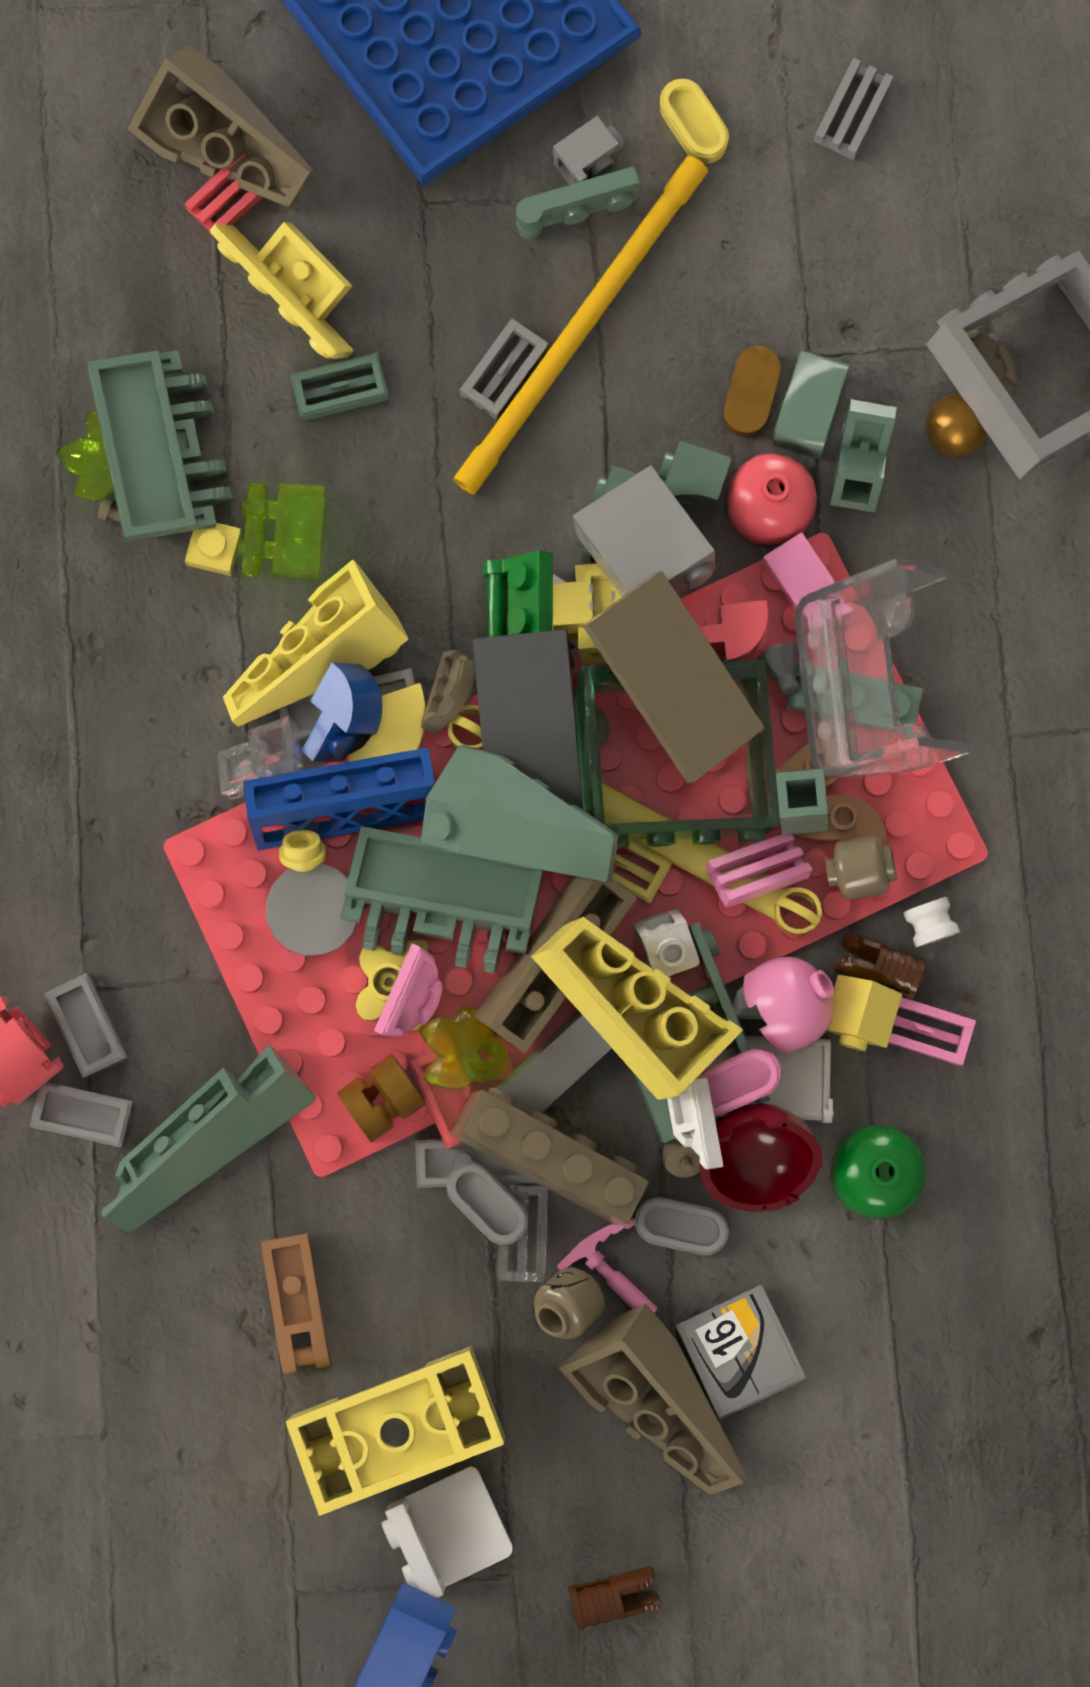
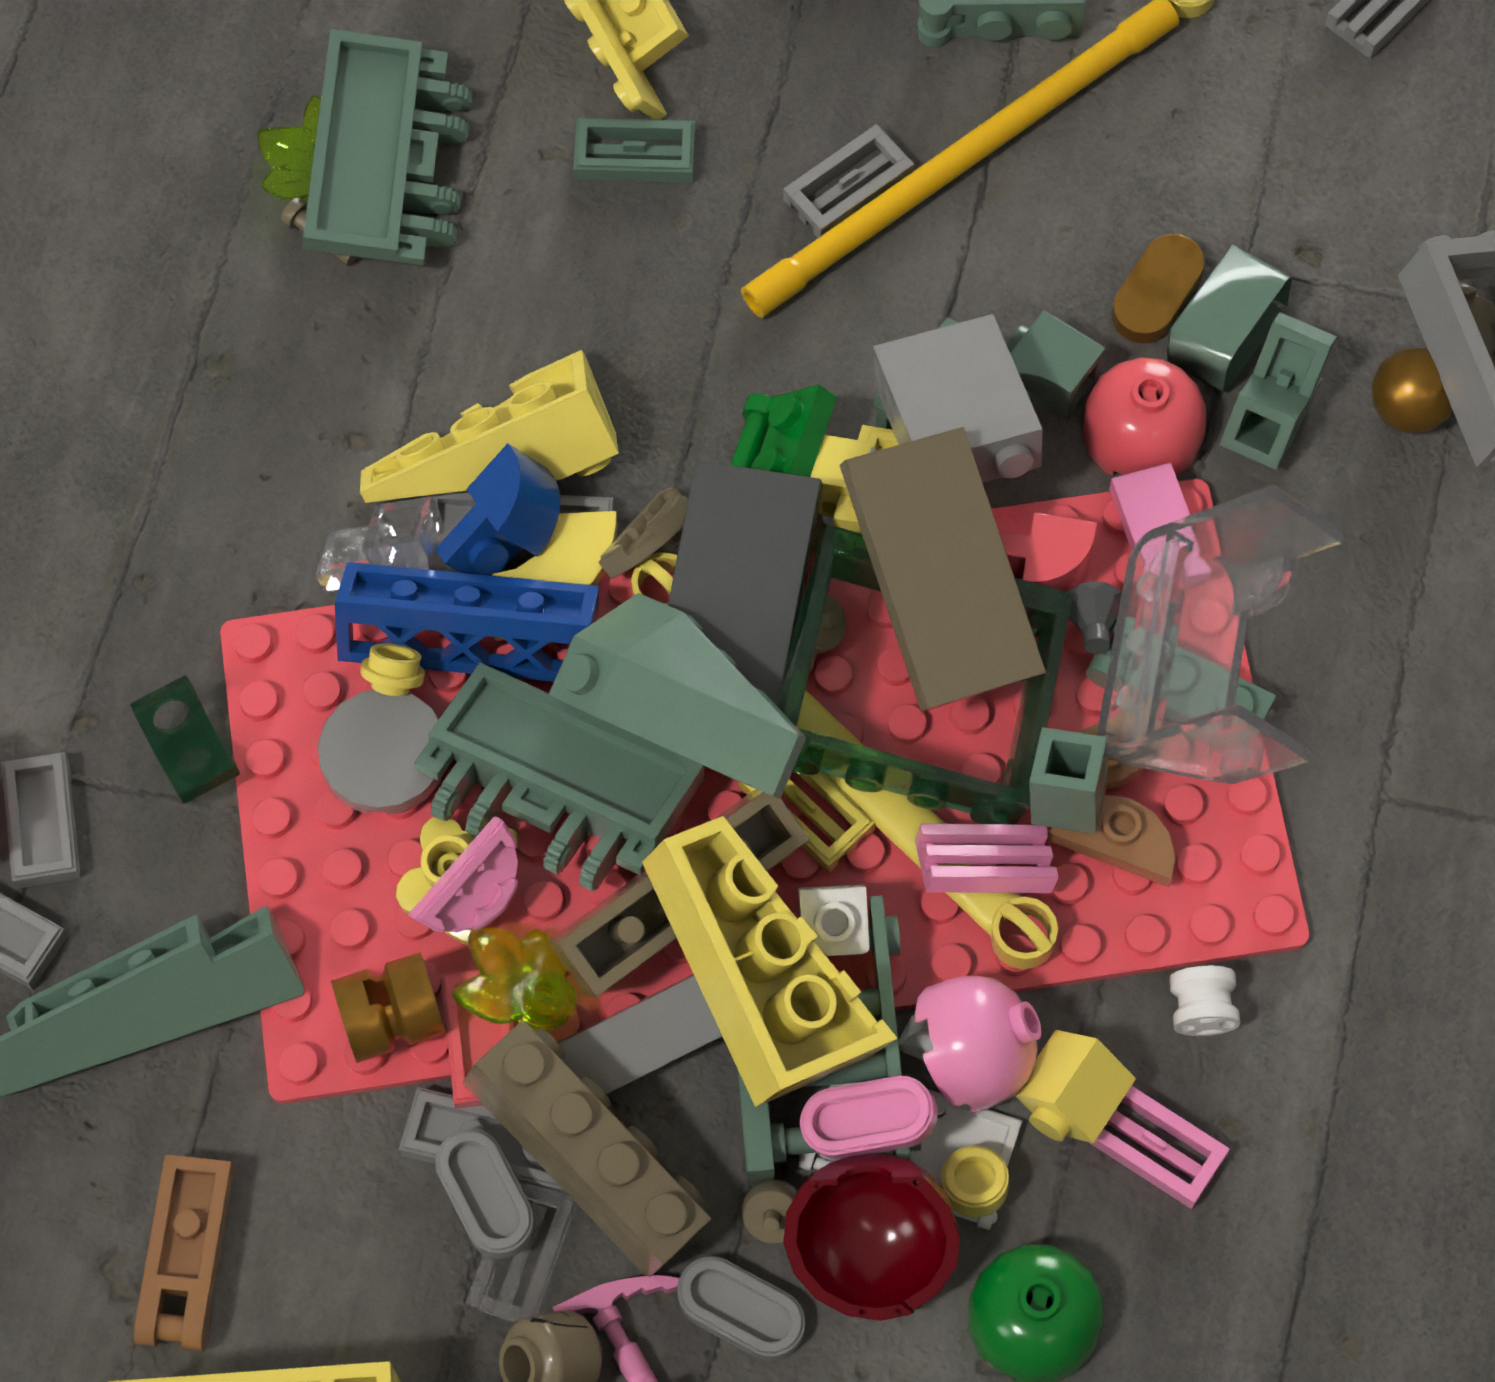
camera: 20 degrees right, 15 degrees down
(174, 945) = (190, 752): none -> clear green bracket
(214, 548) = (412, 293): light yellow plate -> none
(297, 533) = (522, 300): clear neon green plate -> none
(695, 1122) = (796, 1144): white tile -> none
(813, 1095) = (975, 1181): none -> light yellow tile
(861, 867) = (1127, 895): dark tan head -> none
(890, 966) = (1132, 1041): reddish brown hinge -> none

